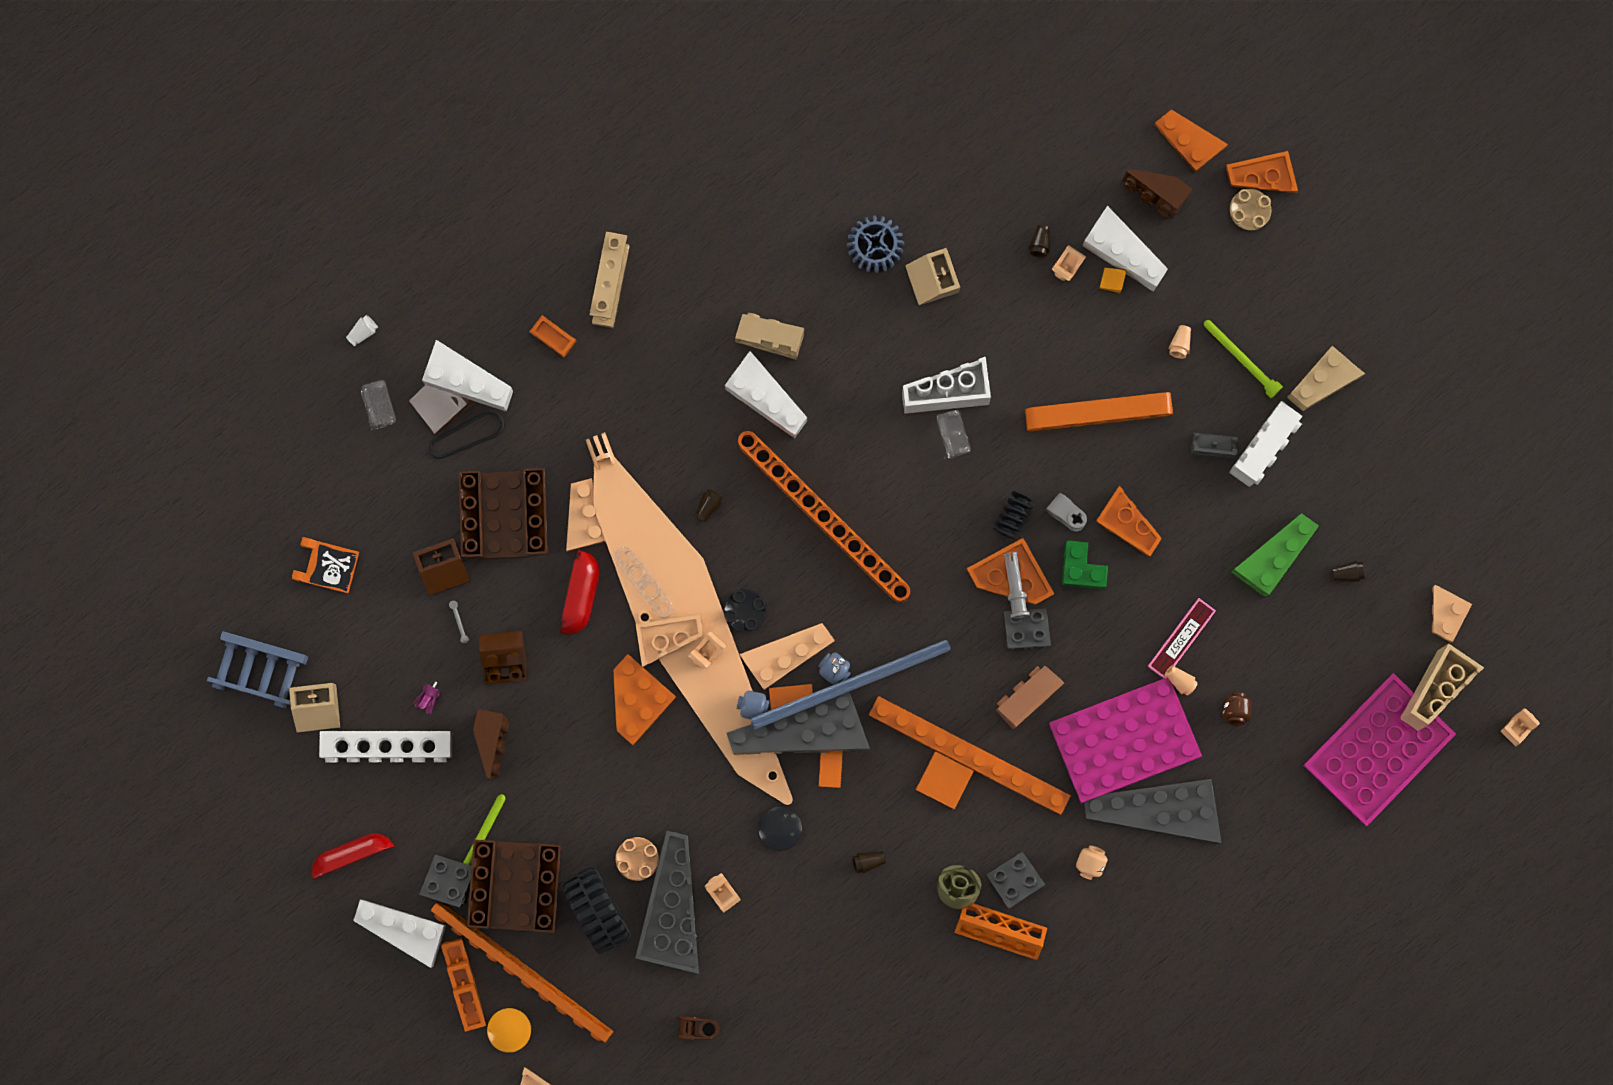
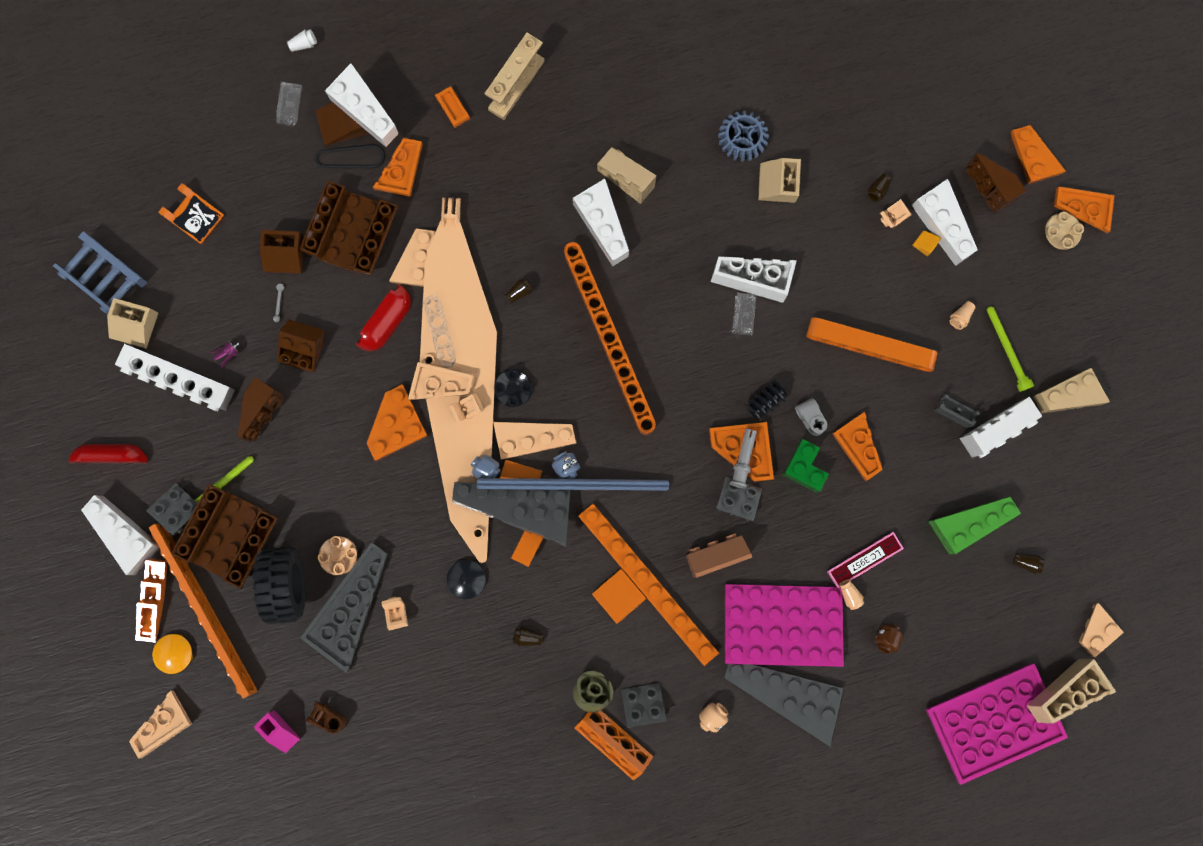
camera: 25 degrees right, 0 degrees up
(528, 426) = (401, 171): none -> orange wing
(654, 1062) = (277, 731): none -> dark pink slope
(1520, 726) = (1125, 753): light nougat bracket -> none

